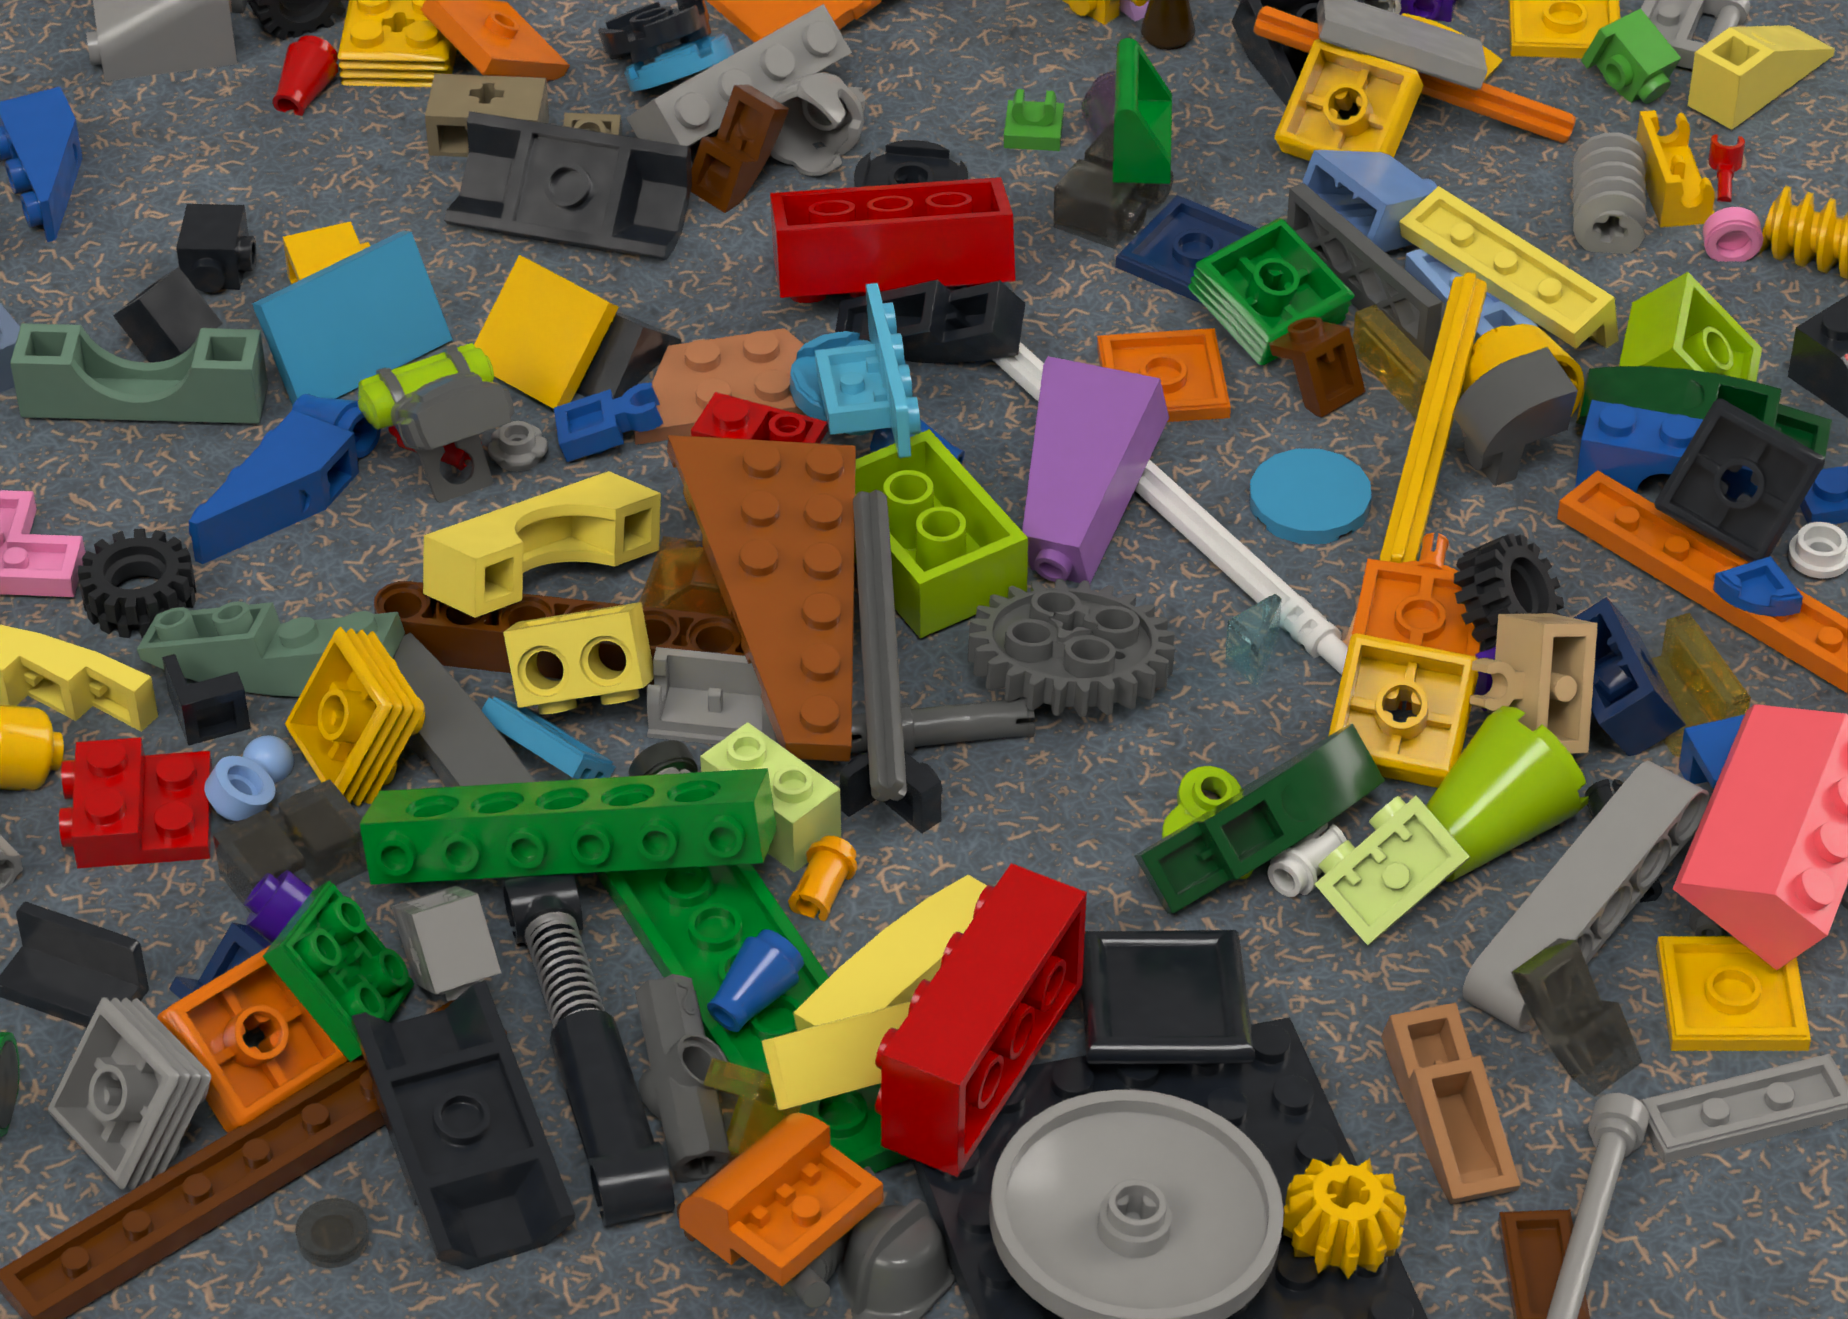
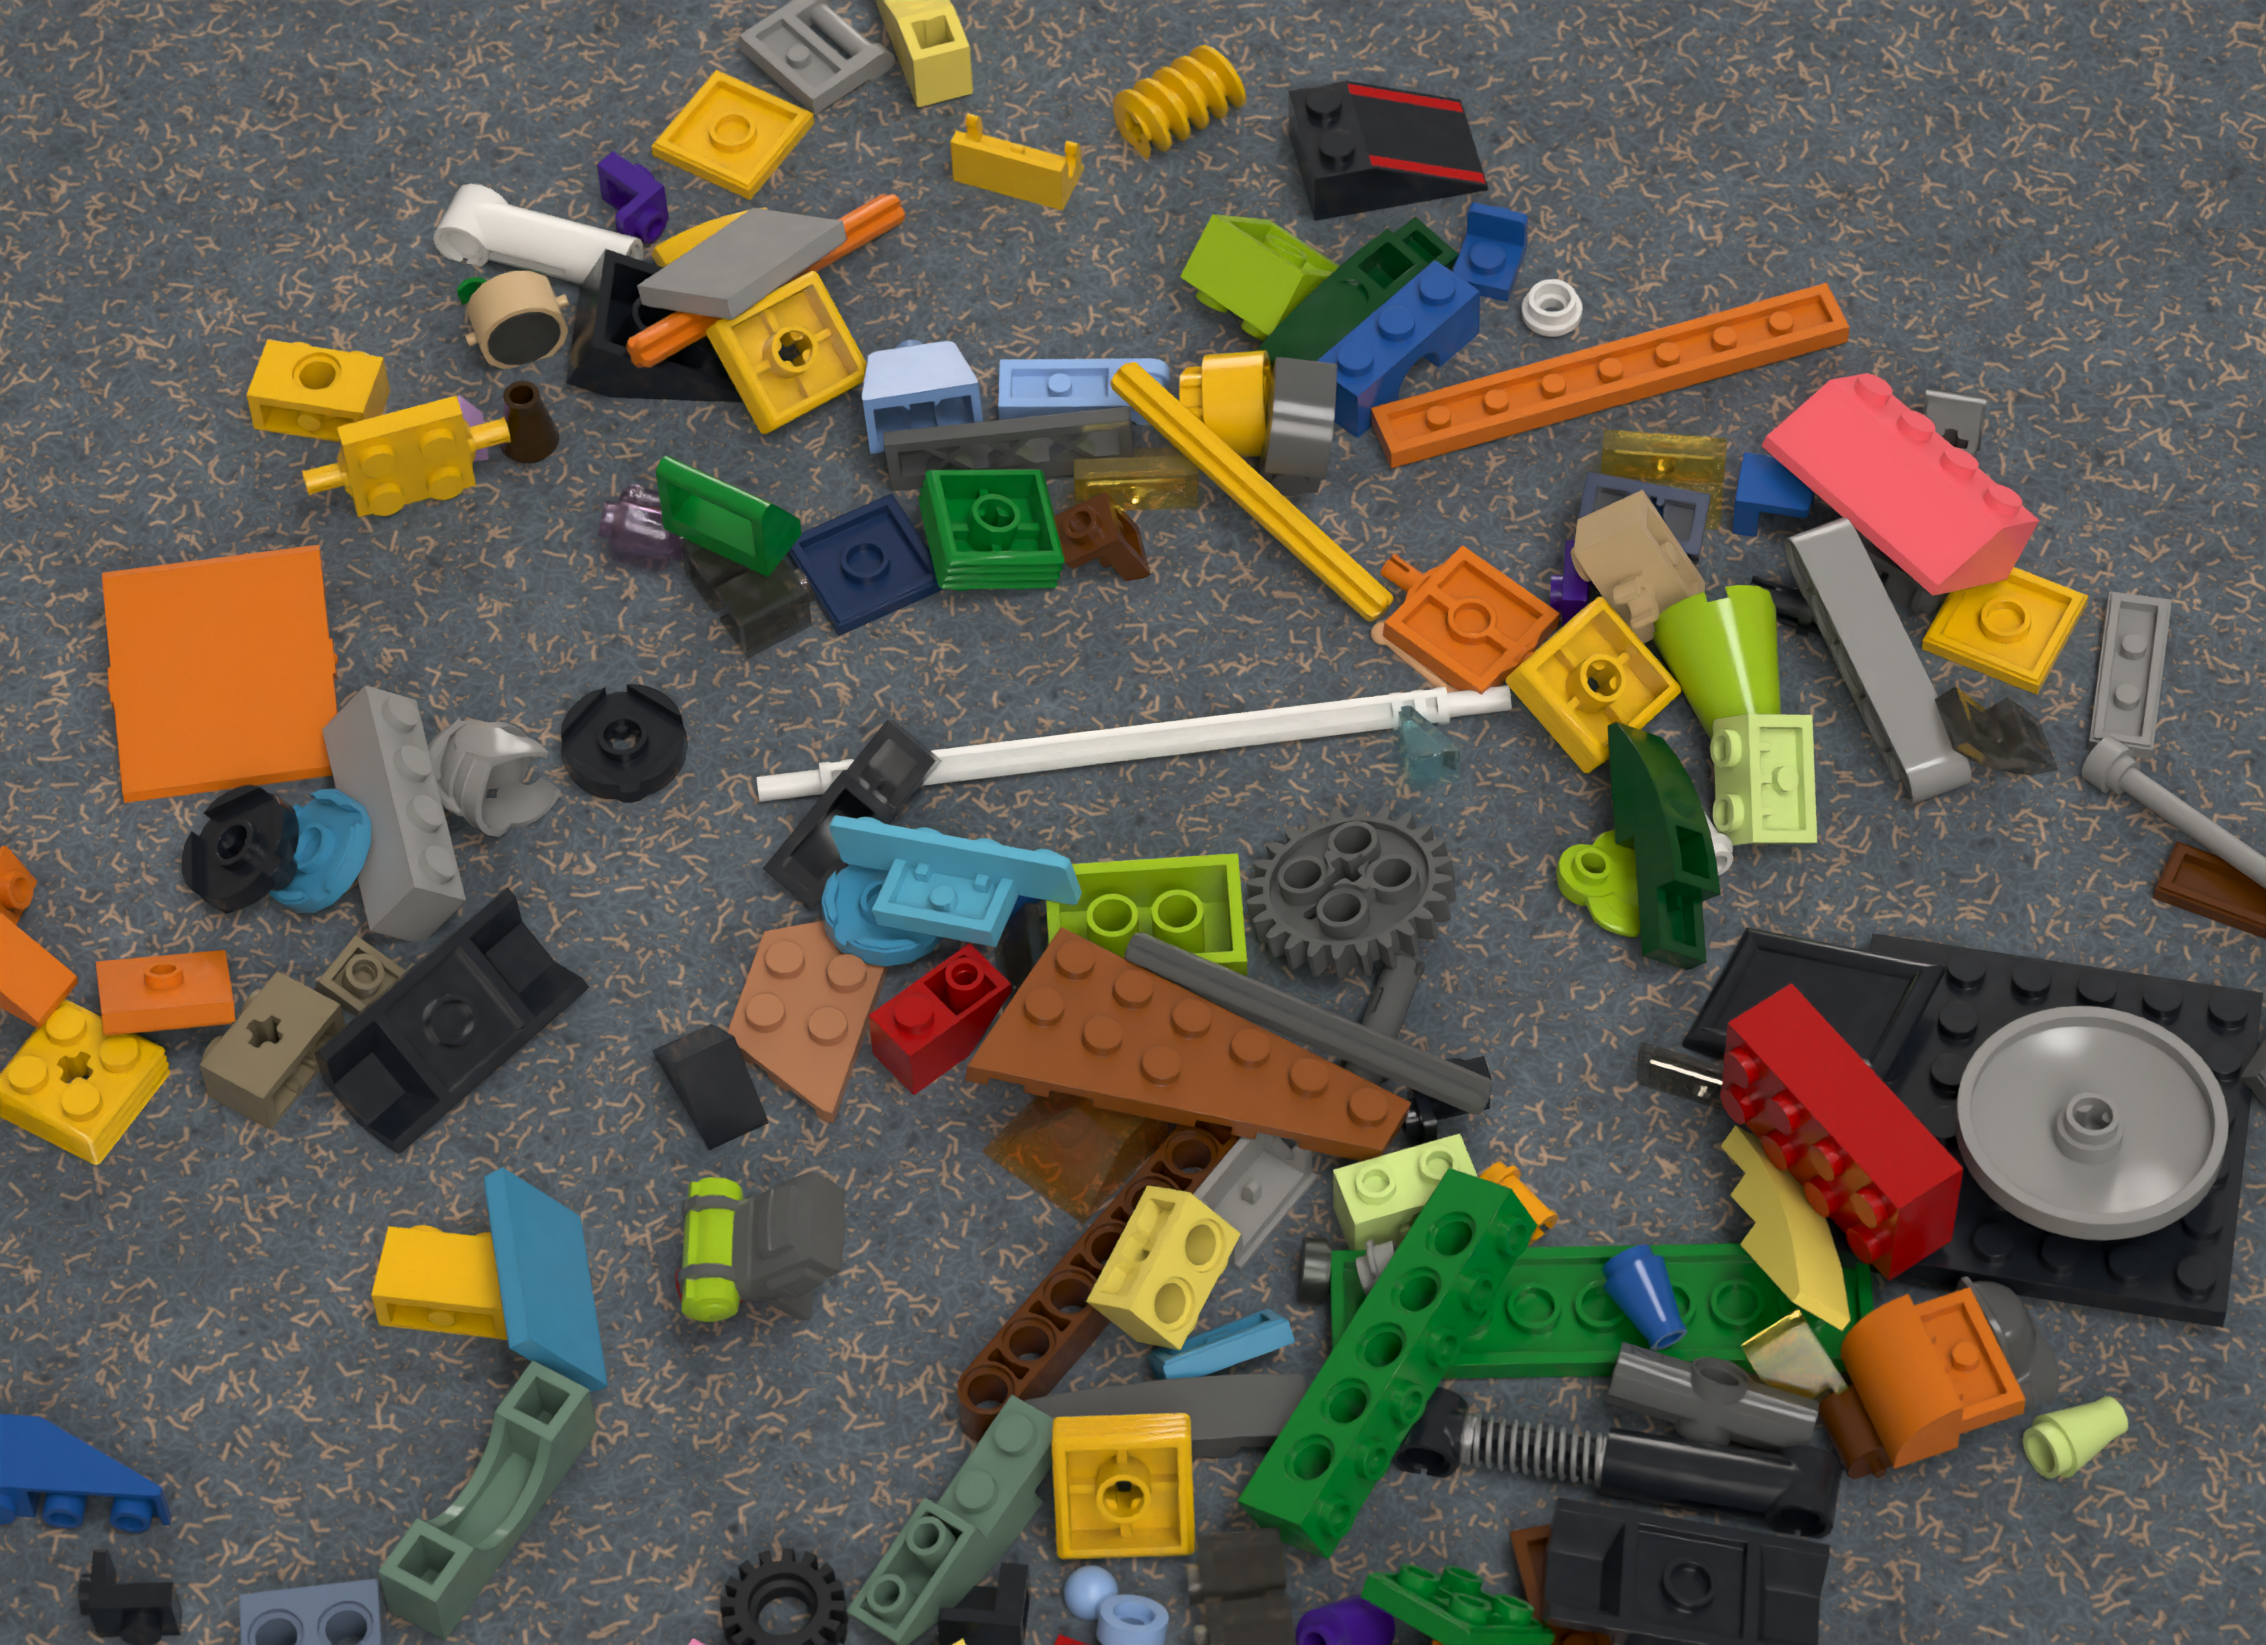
camera: 60 degrees left, 10 degrees up
(166, 317) = (418, 1446): black brick -> none
(215, 246) = (316, 1368): black brick -> none
(283, 481) = (715, 1422): blue slope -> none
(305, 72) = (77, 1188): red cone -> none
(341, 414) = (656, 1359): blue cone -> none
(446, 941) = (1467, 1514): light grey brick -> none
(483, 559) = (1006, 1285): light yellow arch -> none
(544, 332) = (662, 1128): yellow tile -> none
(600, 419) = (807, 1136): blue plate -> none
(733, 159) = (490, 848): reddish brown slope -> none
(891, 237) = (727, 784): red brick -> none
(895, 959) = (1666, 1179): light yellow slope -> none
(1034, 123) = (596, 606): bright green tile -> none
(1086, 462) = (1133, 769): medium lavender slope -> none
(1184, 362) = (1021, 667): orange tile -> none
(1310, 495) = (1252, 630): dark azure tile -> none
(1344, 1215) = (2146, 981): yellow gear -> none
(1450, 1102) = (2028, 866): medium nougat slope -> none
(1504, 580) = (1502, 543): black tyre -> none
(1512, 269) = (1085, 340): light yellow fence -> none
(1609, 194) = (1020, 225): light grey piece -> none
(1633, 57) = (851, 110): bright green brick -> none
(1699, 495) = (1492, 314): black brick -> none
(1725, 161) = (1013, 120): red hand -> none
(1732, 235) = (1130, 164): bright pink tile -> none
(1759, 589) = (1594, 368): blue tile -> none

